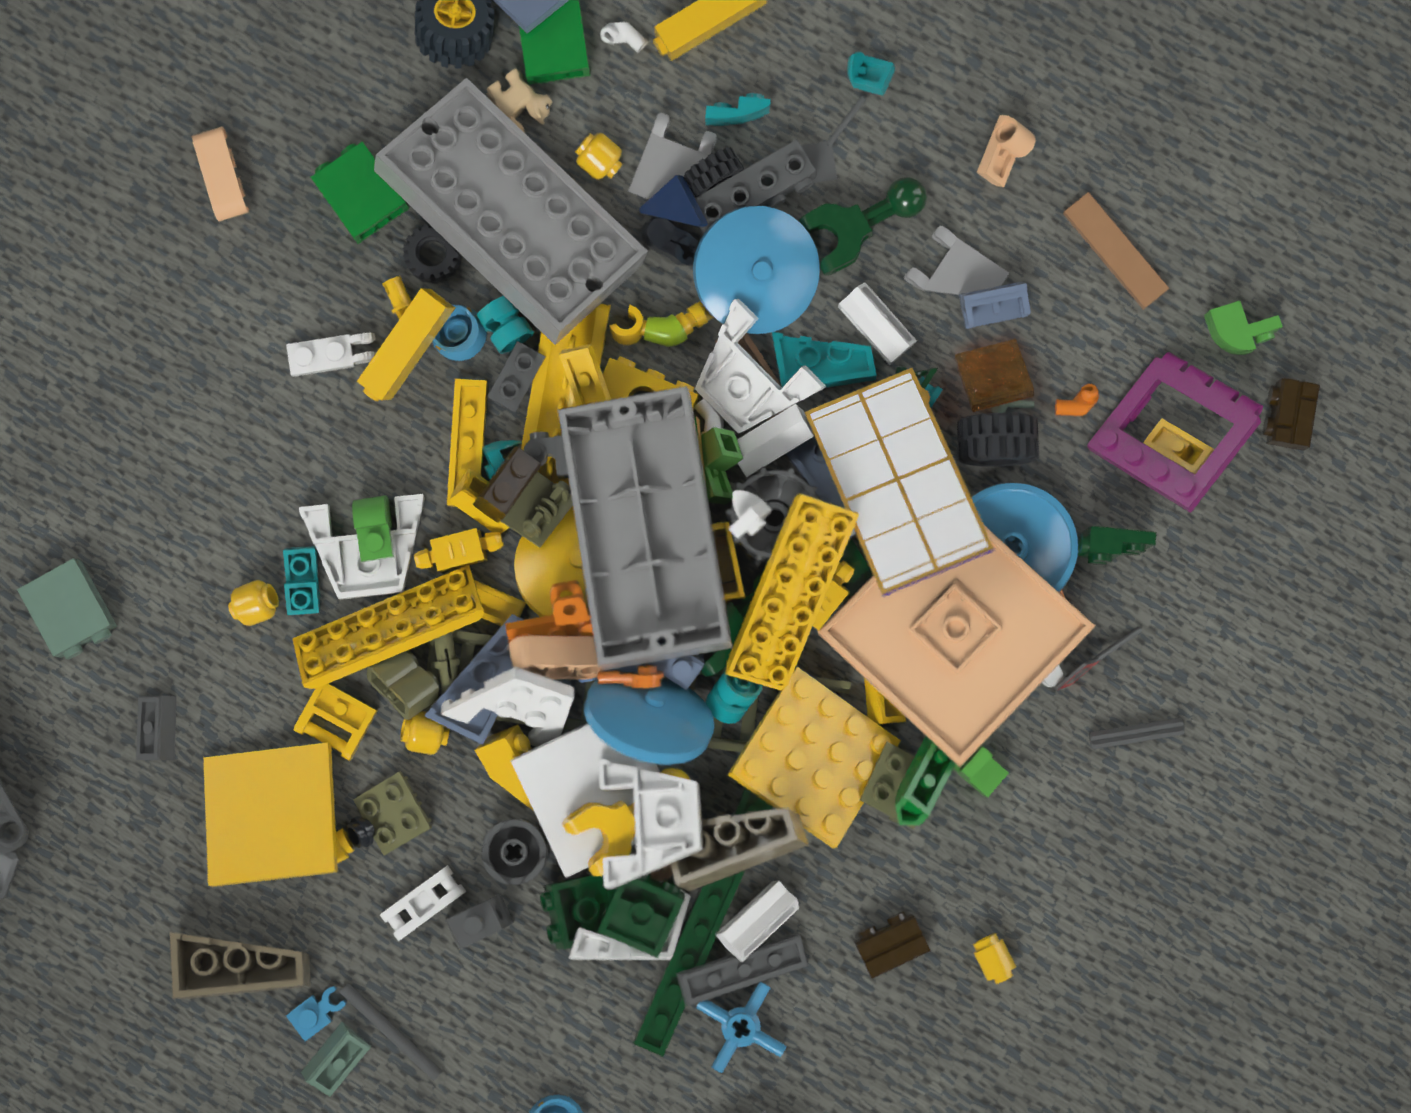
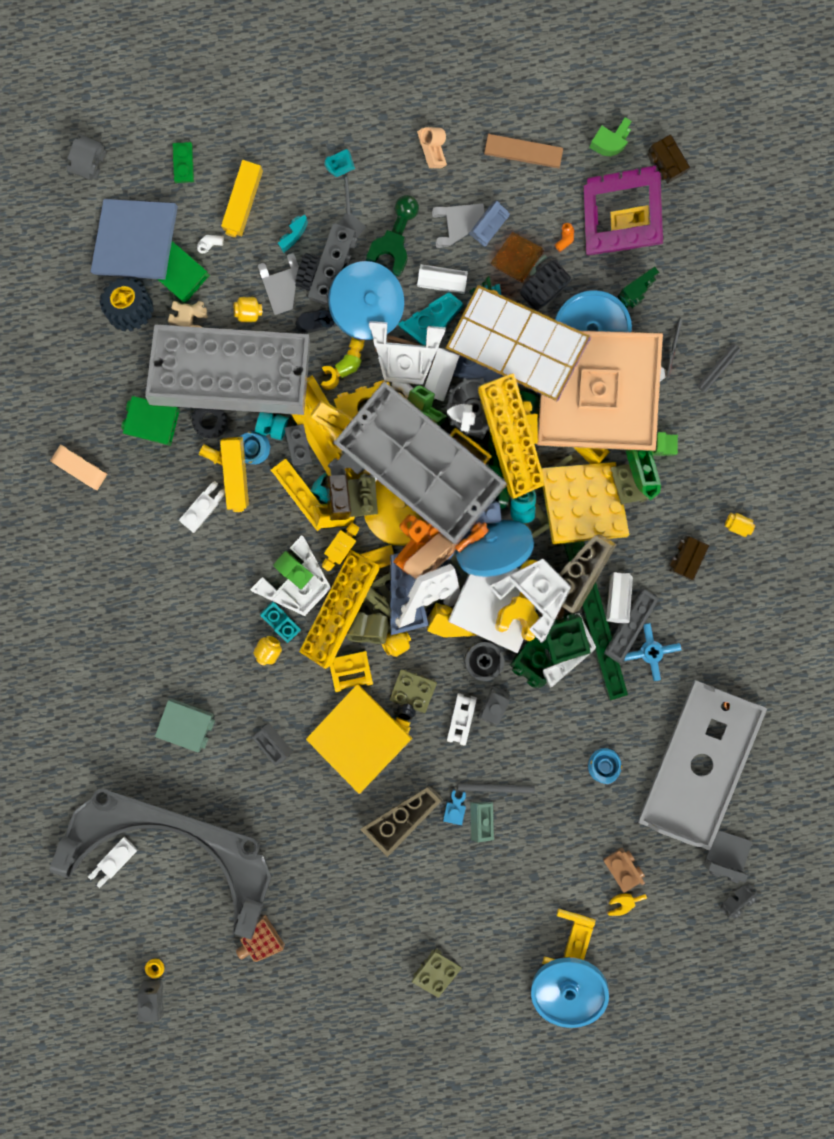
camera: 45 degrees left, 5 degrees up
(675, 203) = (302, 301): dark blue tile -> none

